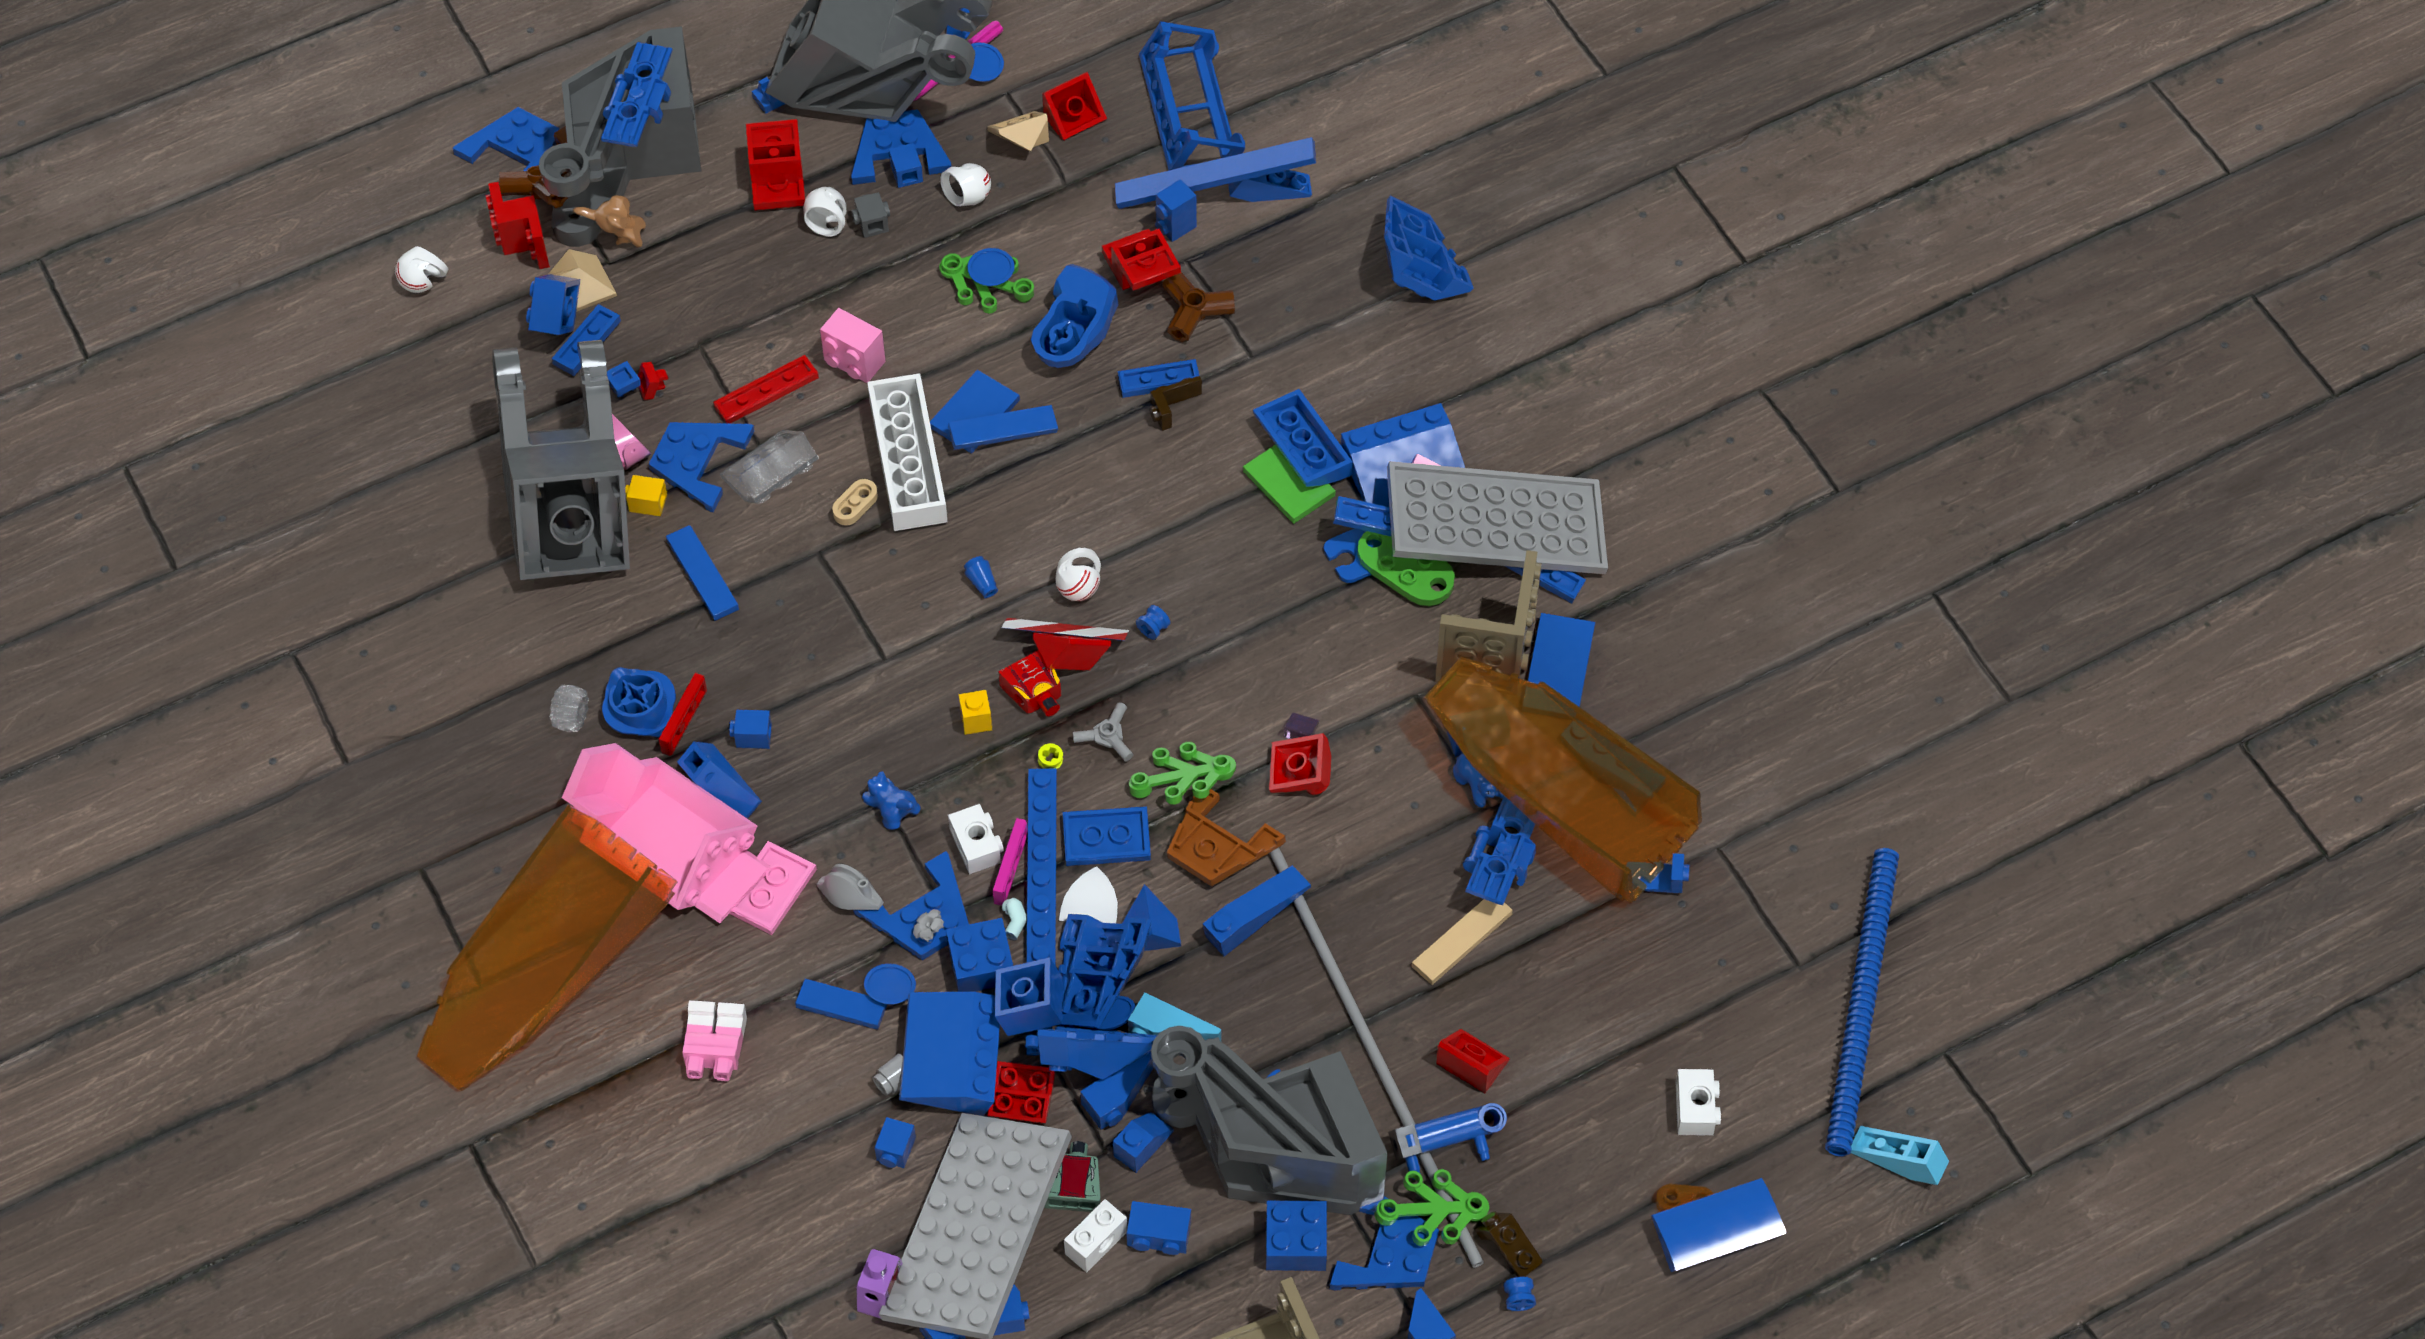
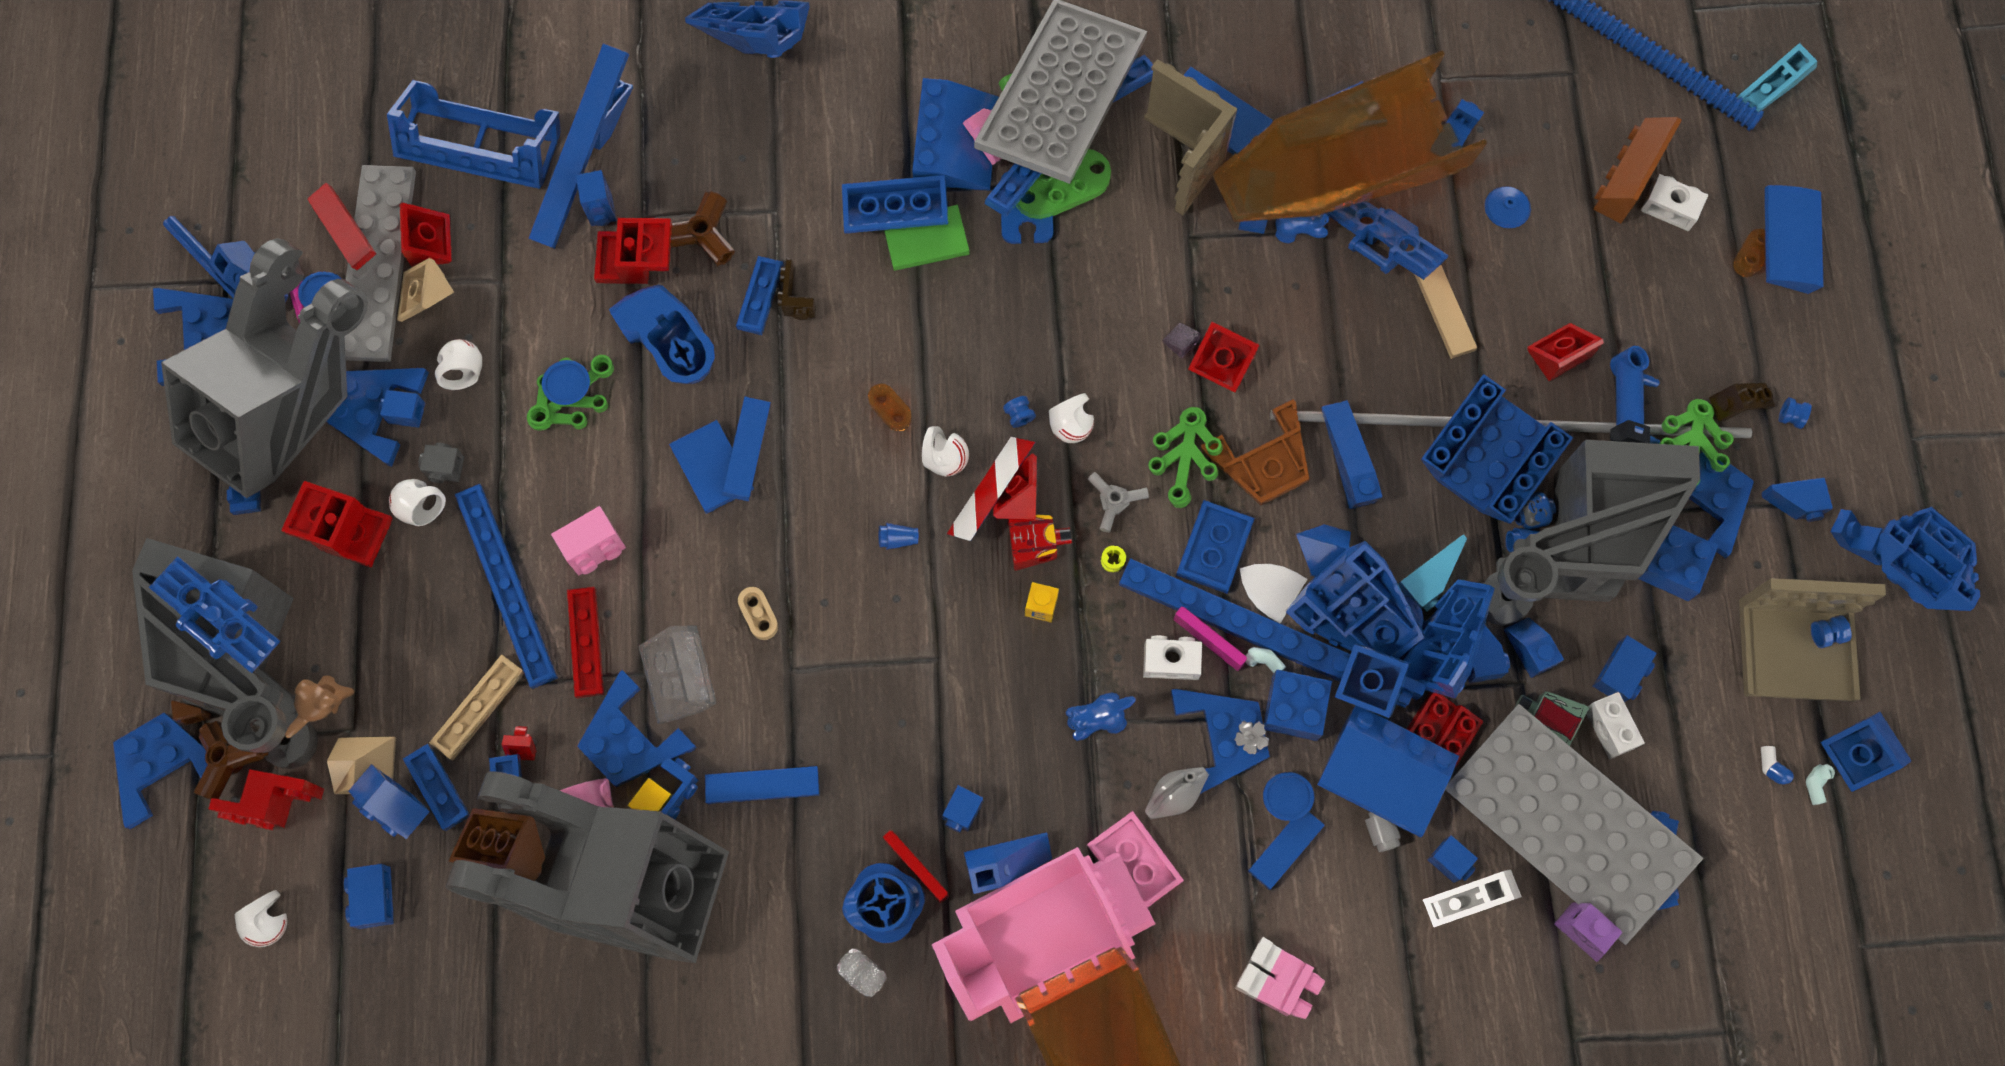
camera: 65 degrees left, 15 degrees up
(472, 335) = (369, 896): none -> blue brick
(548, 393) = (501, 842): none -> reddish brown slope
(665, 514) = (679, 770): none -> blue bracket
(670, 339) = (477, 707): none -> tan tile
(786, 311) = (506, 586): none -> blue tile
(868, 1175) = (1472, 898): none -> white slope
(907, 452) = (731, 542): white brick -> none
(1021, 88) = (380, 279): none -> light grey plate
(1047, 45) = (341, 226): none -> red tile
(1101, 522) = (891, 408): none -> clear orange plate
(1162, 659) = (1070, 421): none -> white helmet
(1322, 1013) = (1494, 452): none -> blue slope
(1608, 959) = (1507, 207): none -> blue piece
(1716, 1050) = (1635, 166): none -> dark orange slope

